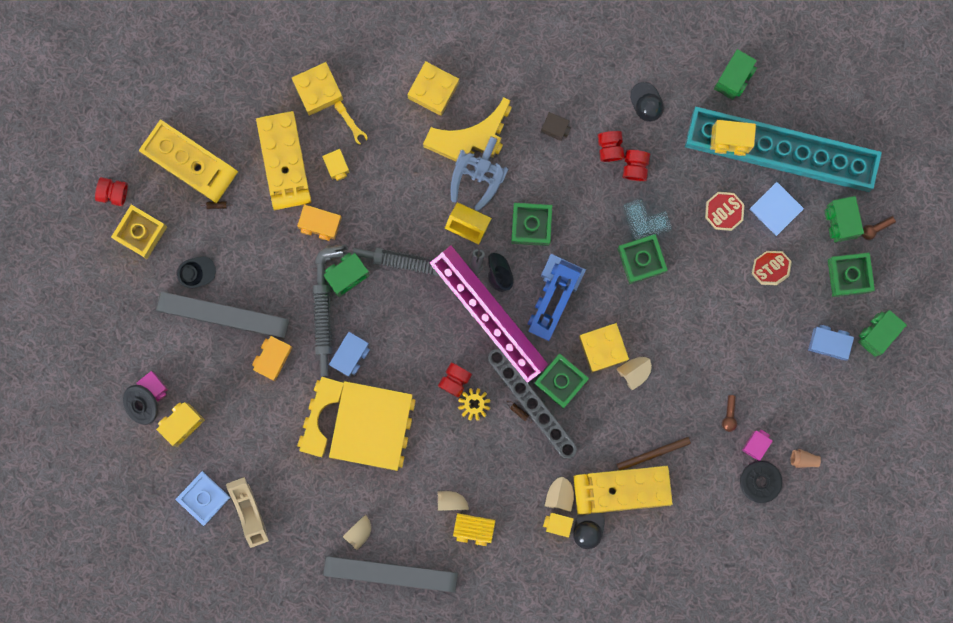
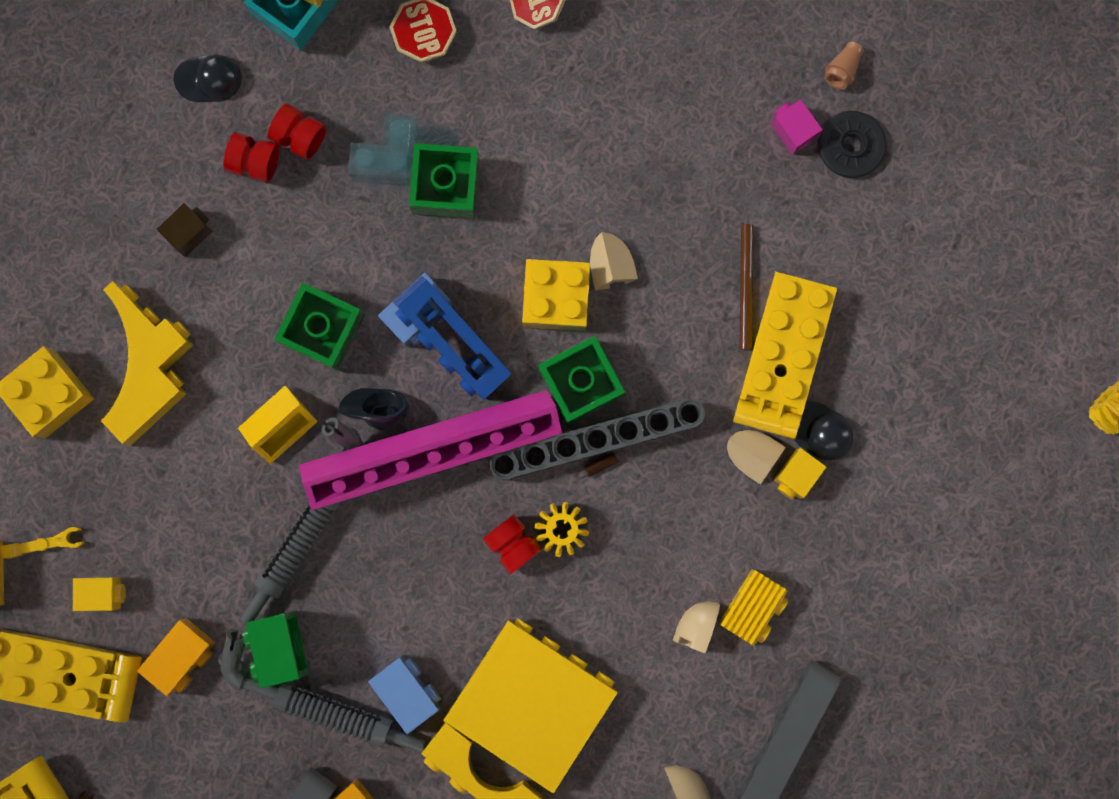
camera: 65 degrees left, 0 degrees up
(482, 165) = (196, 366): sand blue bar -> none
(729, 423) = (746, 154): copper bar -> none

